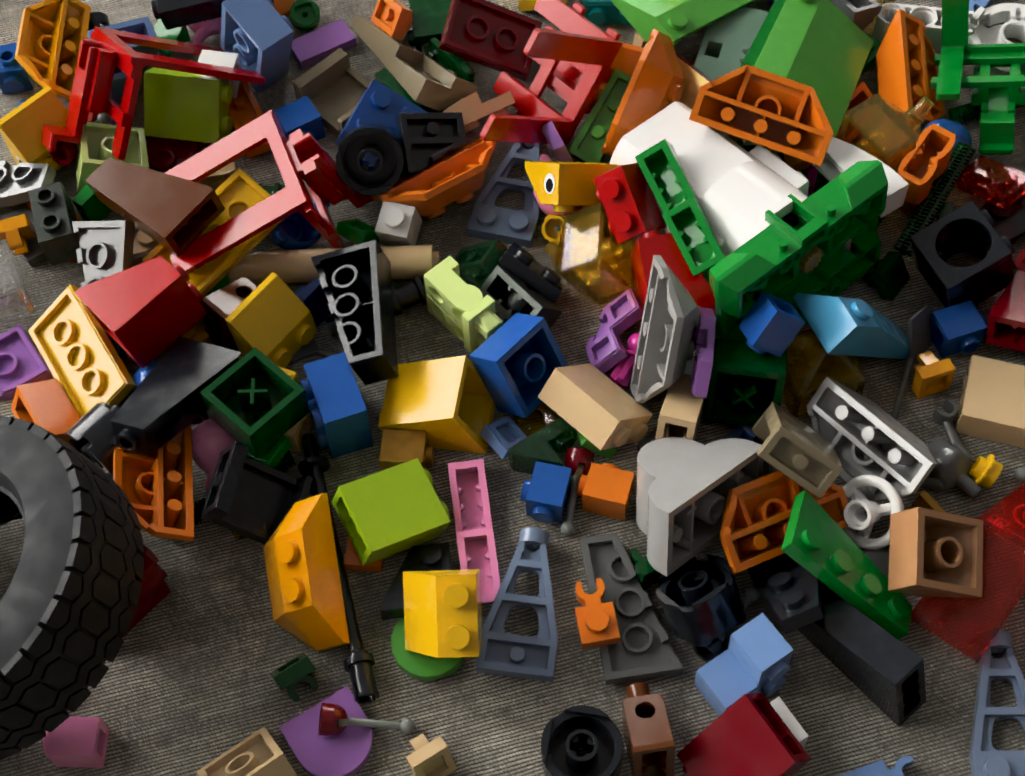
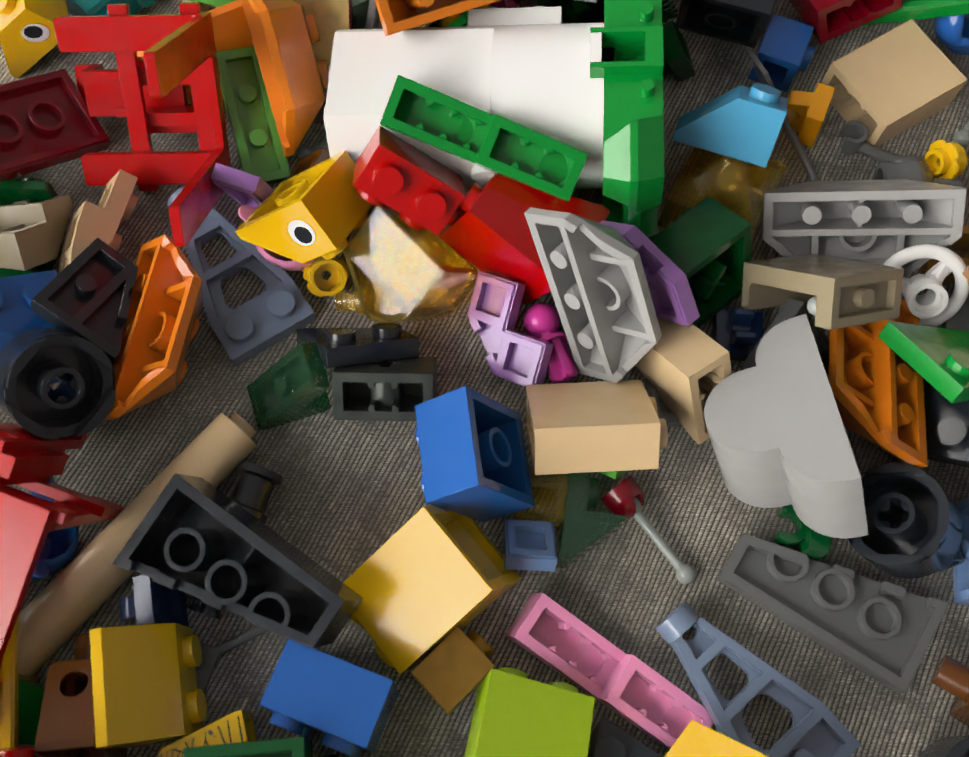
camera: 55 degrees left, 10 degrees up
(356, 231) = (116, 474): green tile -> none
(398, 224) = (157, 426): white brick -> none
(460, 305) = (339, 453): yellowish green hips -> none
(547, 492) = (636, 560): blue brick -> none
(595, 620) = (835, 642): orange plate -> none
(606, 490) = (684, 498): orange brick -> none
(771, 325) = (694, 185): blue brick -> none

